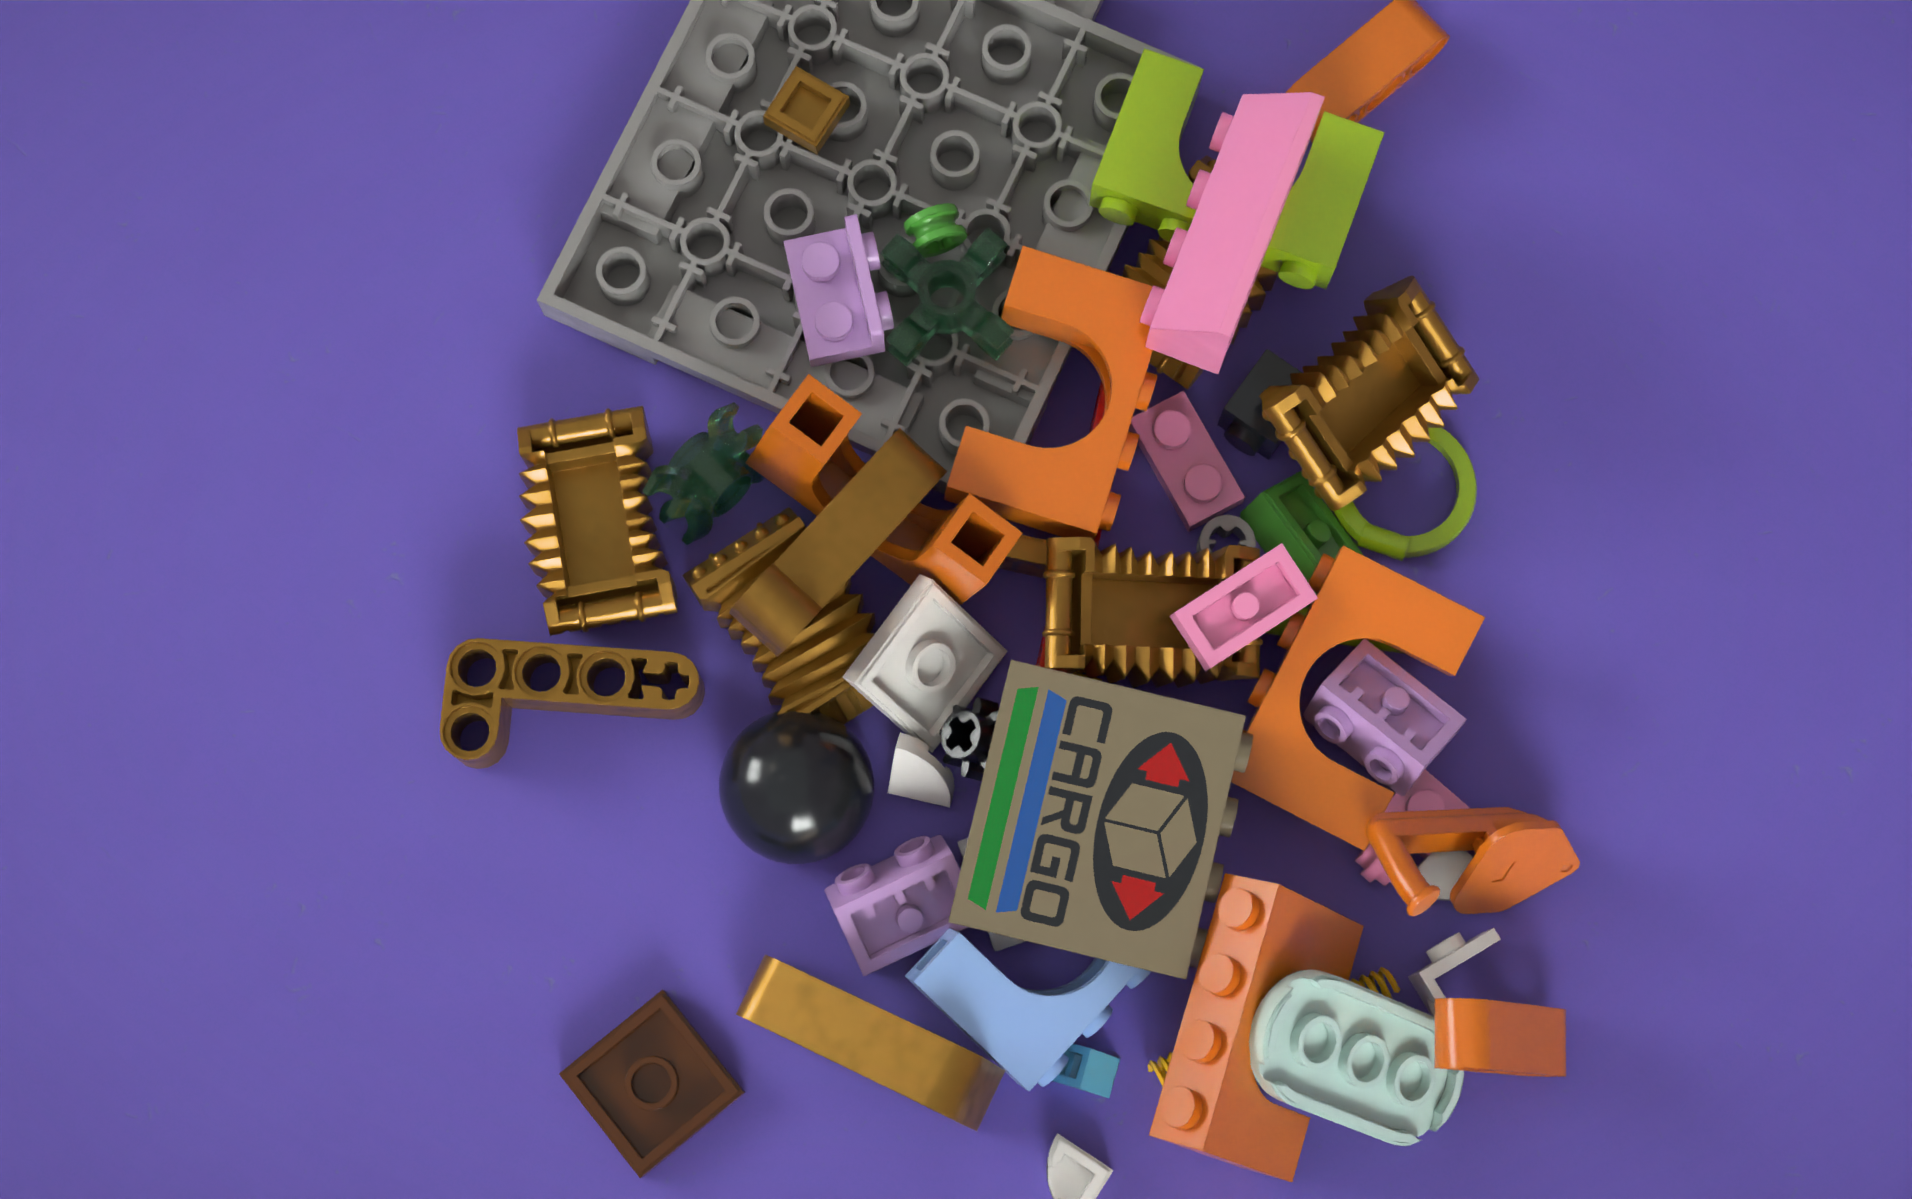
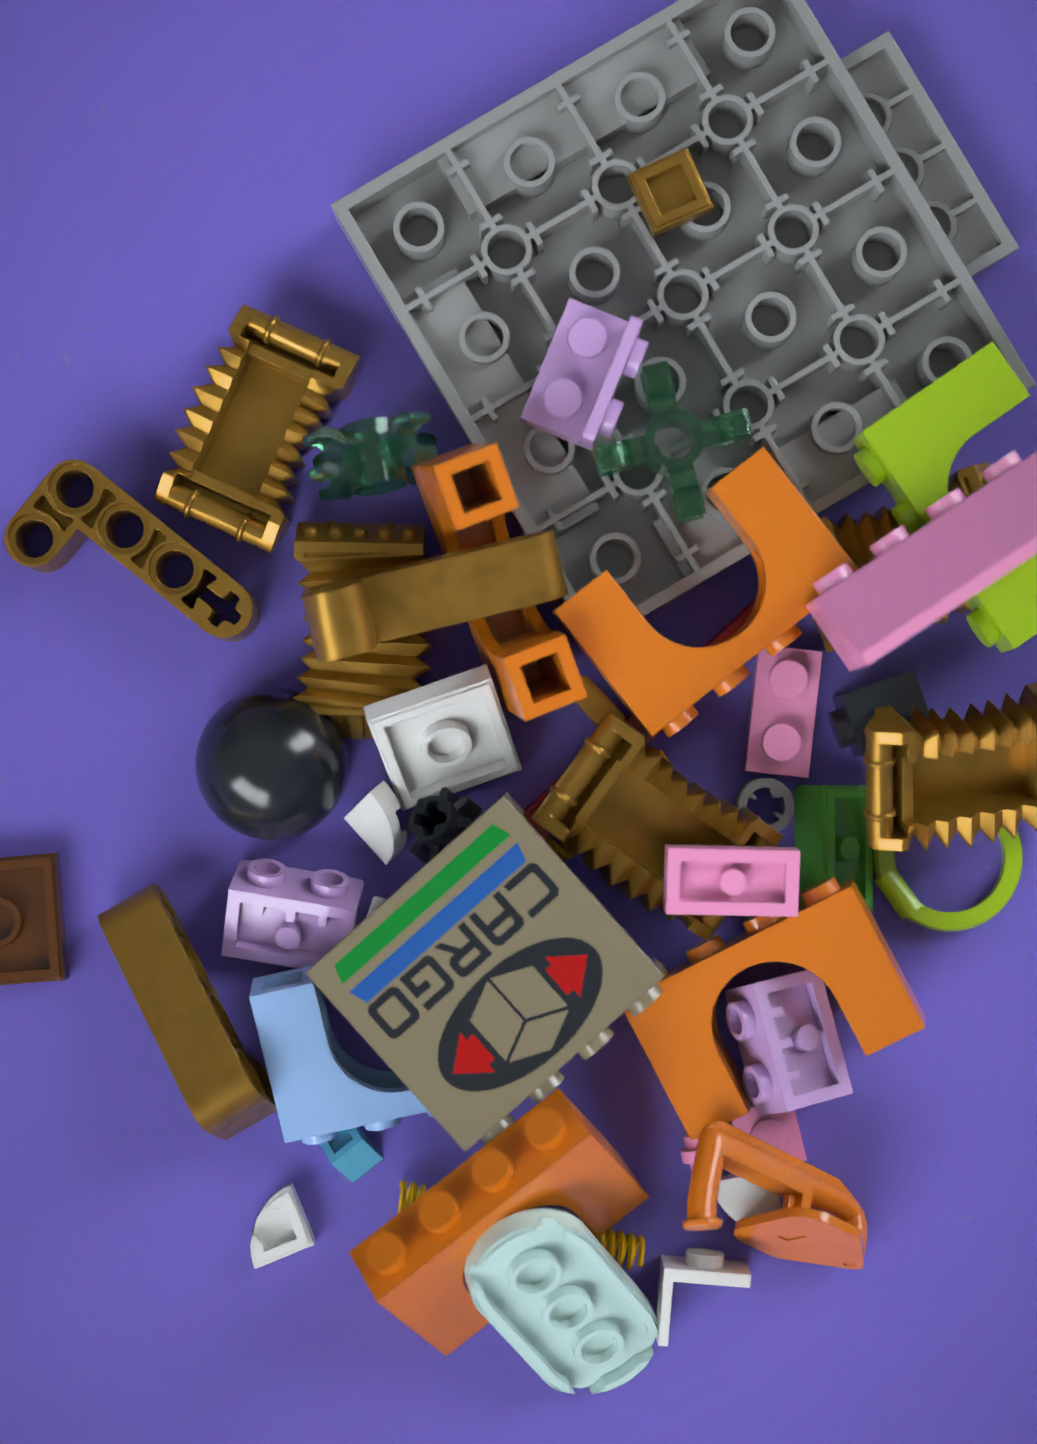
camera: 35 degrees right, 10 degrees up
(935, 229) = (703, 377): bright green bush -> none
(1499, 1037) = (689, 1367): orange beam -> none

